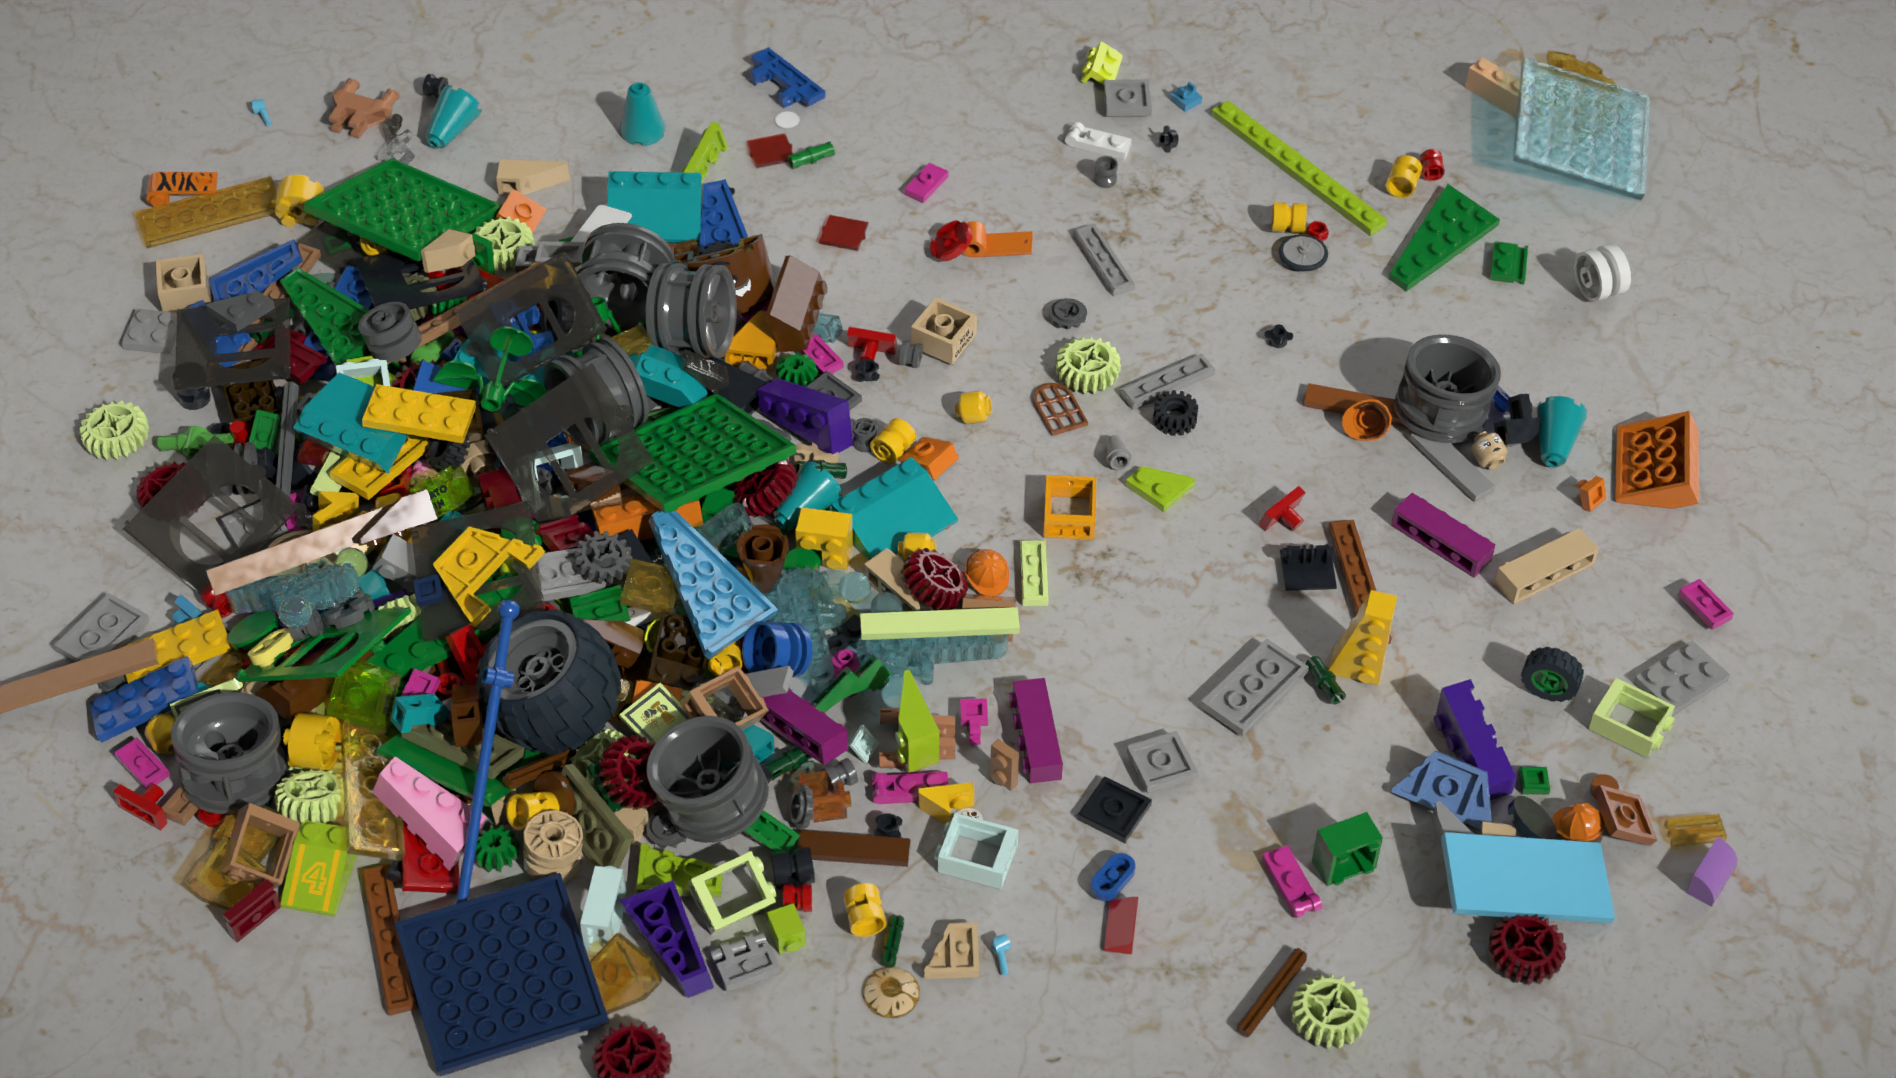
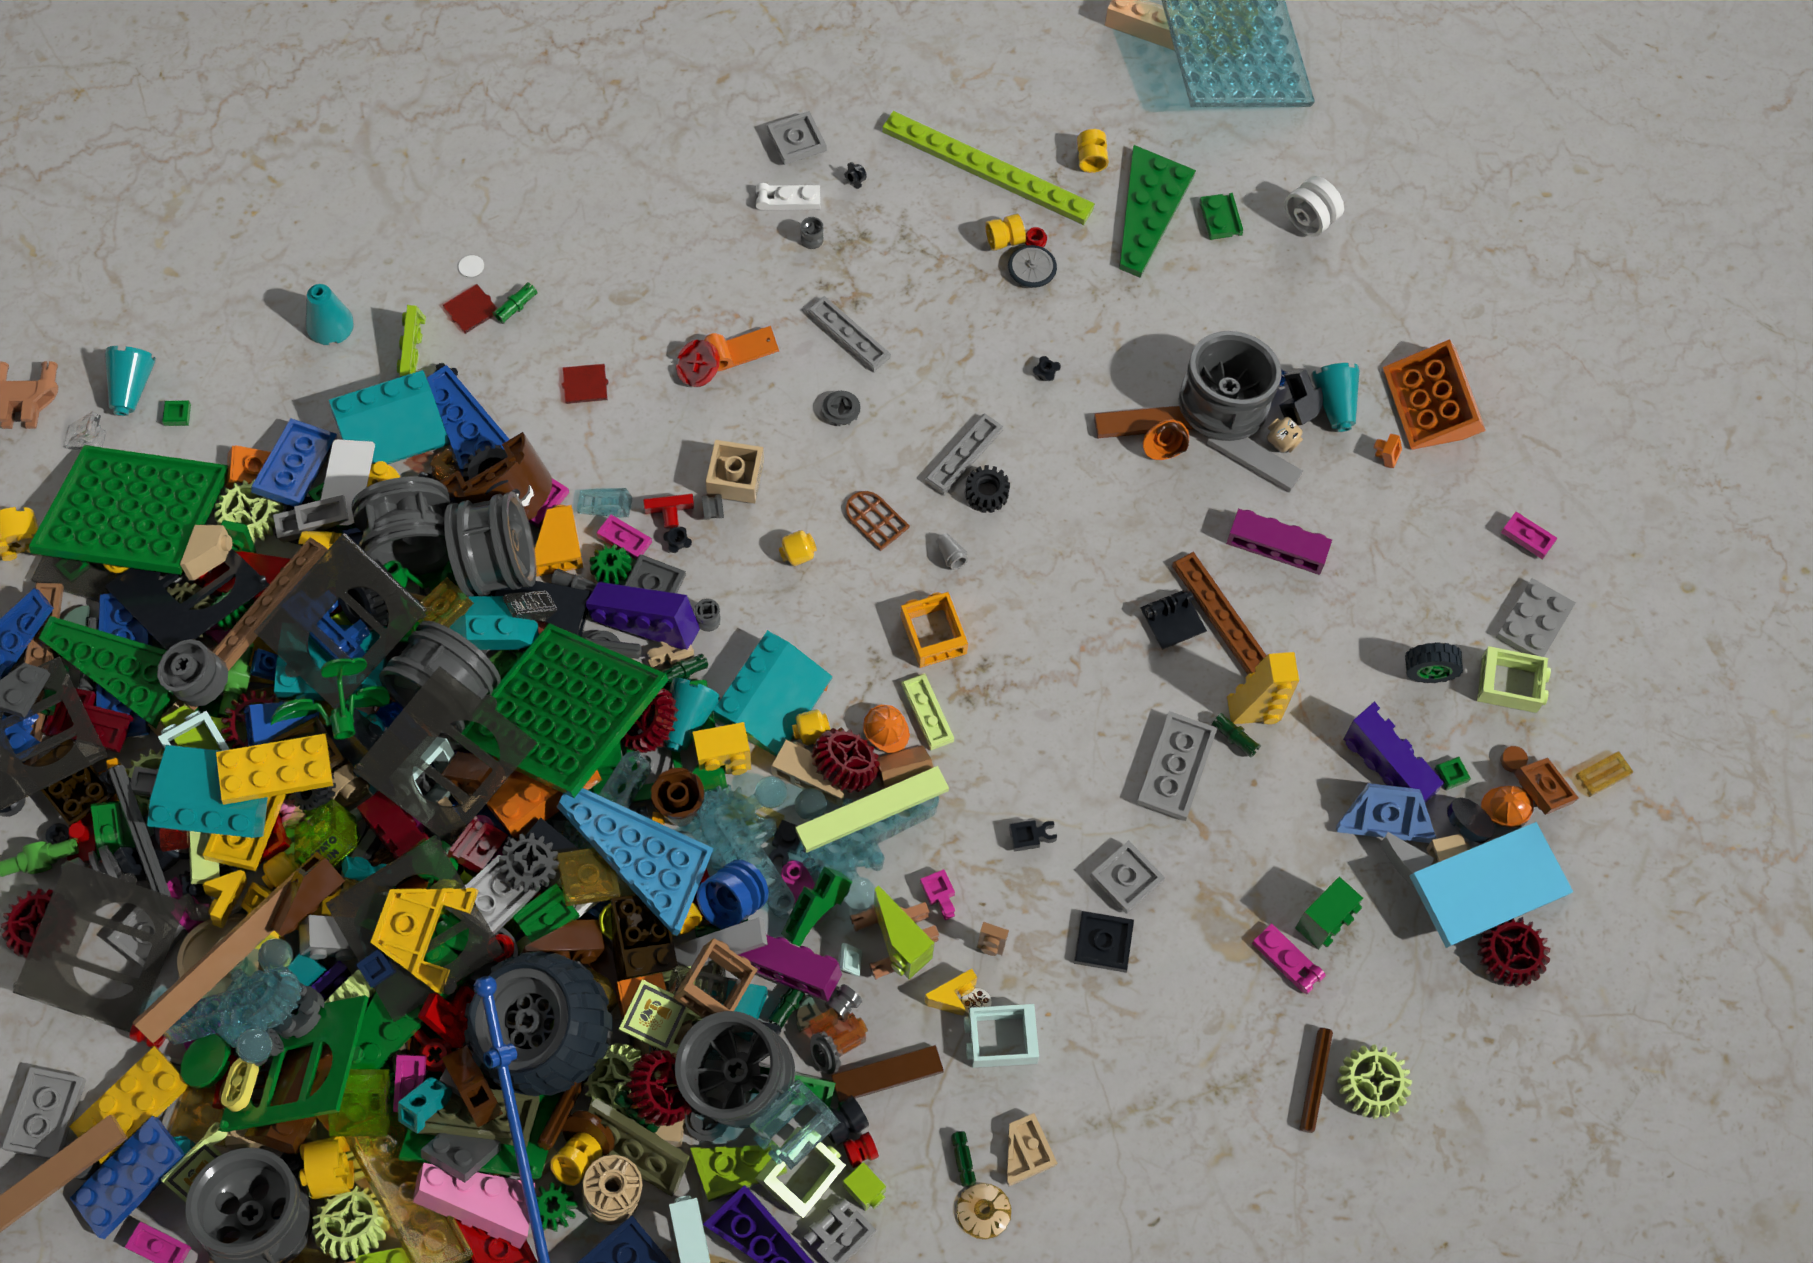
camera: 25 degrees left, 15 degrees up
(159, 733) = (165, 1207): yellow head -> none
(187, 612) = (123, 1057): dark azure tile -> none
(392, 126) = (66, 406): clear smoke arm -> none
(430, 762) = (460, 1154): none -> dark grey wing
(433, 85) = (91, 341): black wheel -> none
(479, 158) = (176, 413): none -> green tile
(530, 175) = (237, 422): tan slope -> none
(556, 215) = (294, 463): none -> blue plate
(739, 839) = (781, 1112): none -> clear light blue window
(795, 305) = (582, 492): slope -> none
(796, 84) = (467, 224): blue hinge -> none
(864, 910) = (932, 1148): yellow wheel -> none
(888, 820) = (912, 1032): black plate -> none
(893, 440) = (738, 613): yellow wheel -> none
(904, 786) = (910, 990): dark pink plate -> none
(926, 182) = (642, 299): dark pink plate -> none
(933, 455) = (778, 615): orange piece -> none
(1000, 944) = (1061, 1126): medium azure hand -> none
(1037, 730) = (1002, 885): magenta brick -> none
(1081, 698) = (1027, 835): none -> black plate
(1088, 364) = (902, 462): yellowish green gear -> none
(1101, 63) = (755, 106): neon yellow bracket -> none
(1110, 878) = (1133, 1016): blue plate -> none
(1121, 925) = (1160, 1062): red slope -> none
(1159, 486) = (1003, 575): lime wing -> none
(1186, 97) = (851, 119): dark azure tile -> none
(1284, 510) = (1129, 565): red tile -> none
(1432, 165) = (1112, 128): red wheel -> none
(1546, 565) = (1380, 543): tan brick -> none
(1713, 872) = (1635, 814): medium lavender brick -> none

